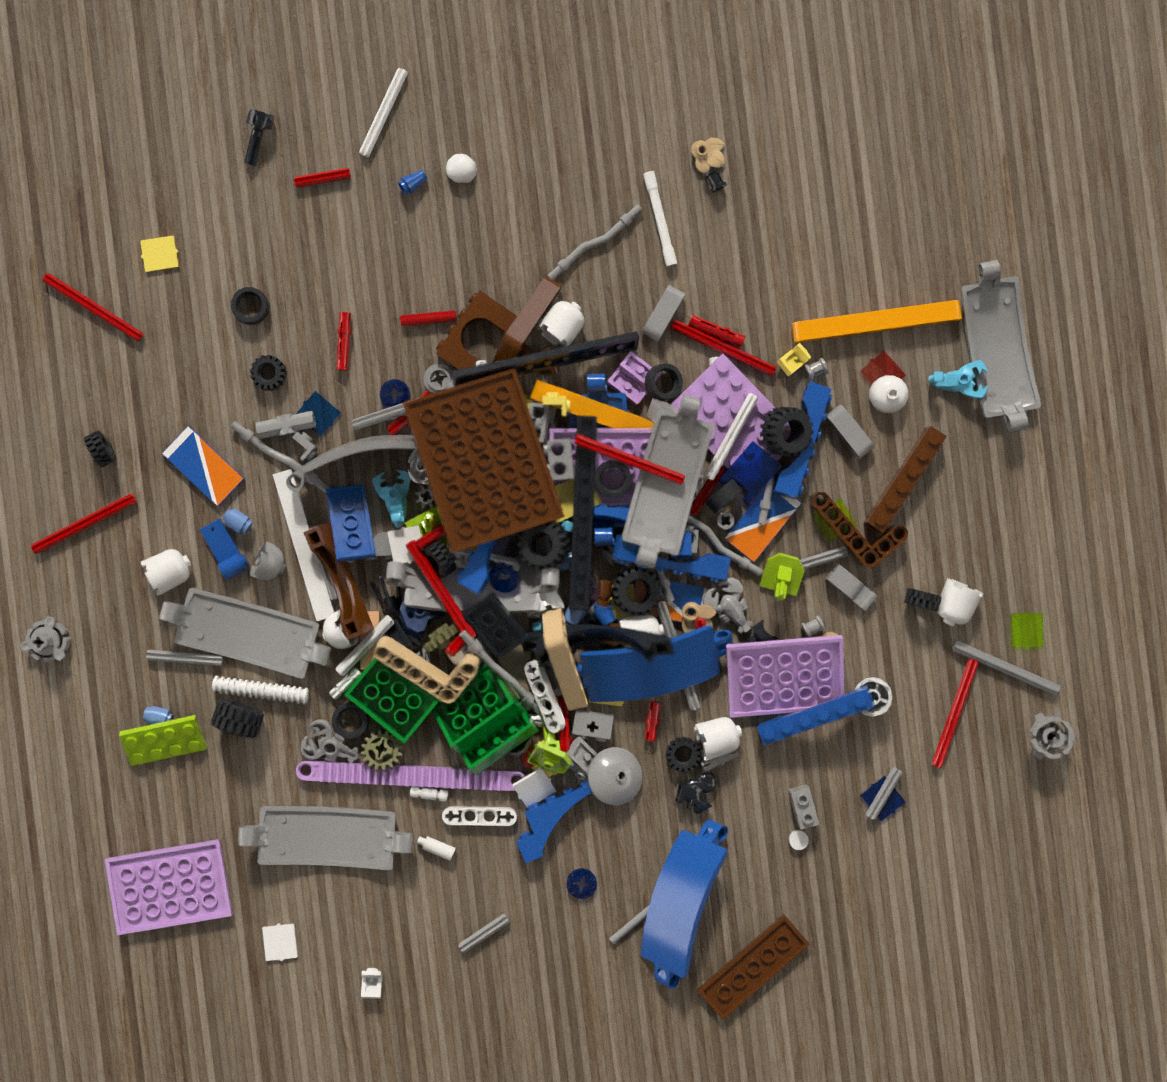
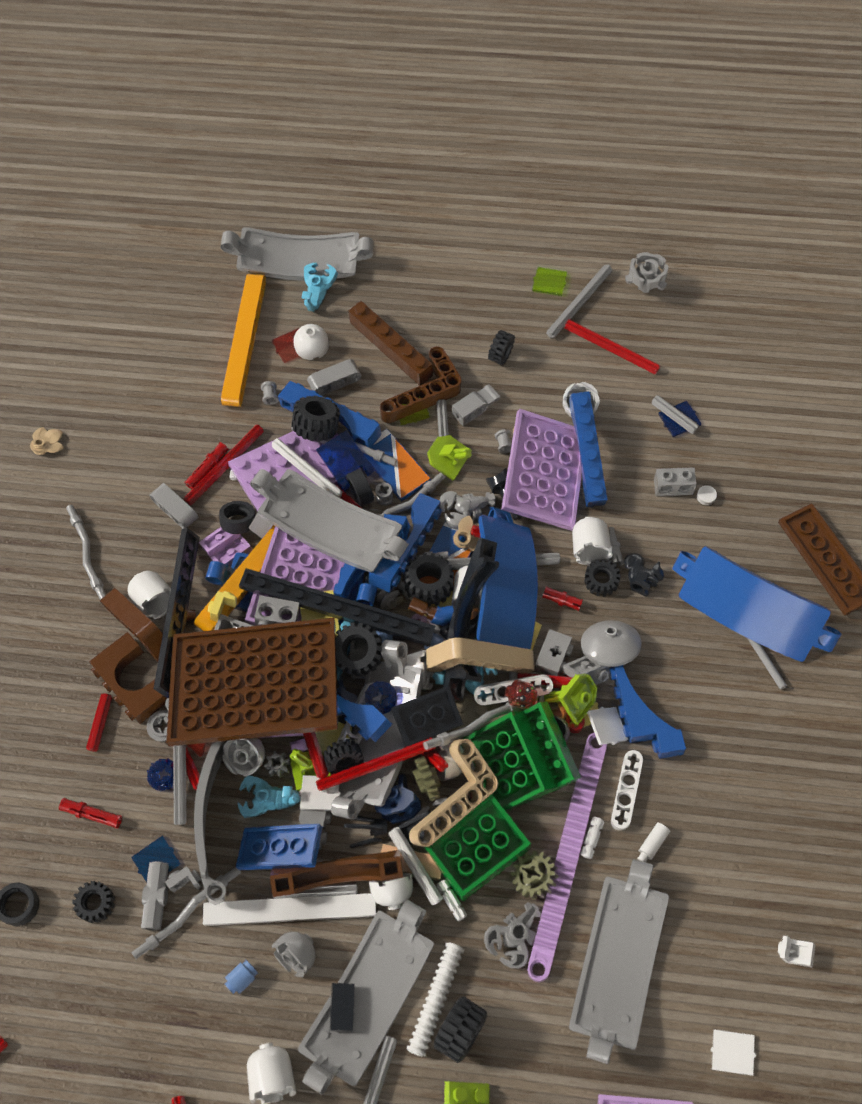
camera: 70 degrees left, 25 degrees down
(203, 466) = (168, 1003): tile -> none
(224, 549) = (268, 1001): blue door -> none
(232, 614) = (342, 1007): none -> black tile
(337, 727) = (493, 886): black tyre -> none
(484, 933) = (756, 815): light grey axle -> none
(537, 706) = (521, 694): none -> clear red head
(576, 876) = (721, 711): clear blue gear -> none
(598, 478) = (316, 557): black tyre -> none
(629, 459) = (296, 549): red axle -> none
(652, 188) = (118, 491): white piece -> none
(715, 180) = (70, 439): black bush -> none
(794, 359) = (254, 407): light yellow bracket -> none
(958, 602) = (511, 319): white cylinder -> none

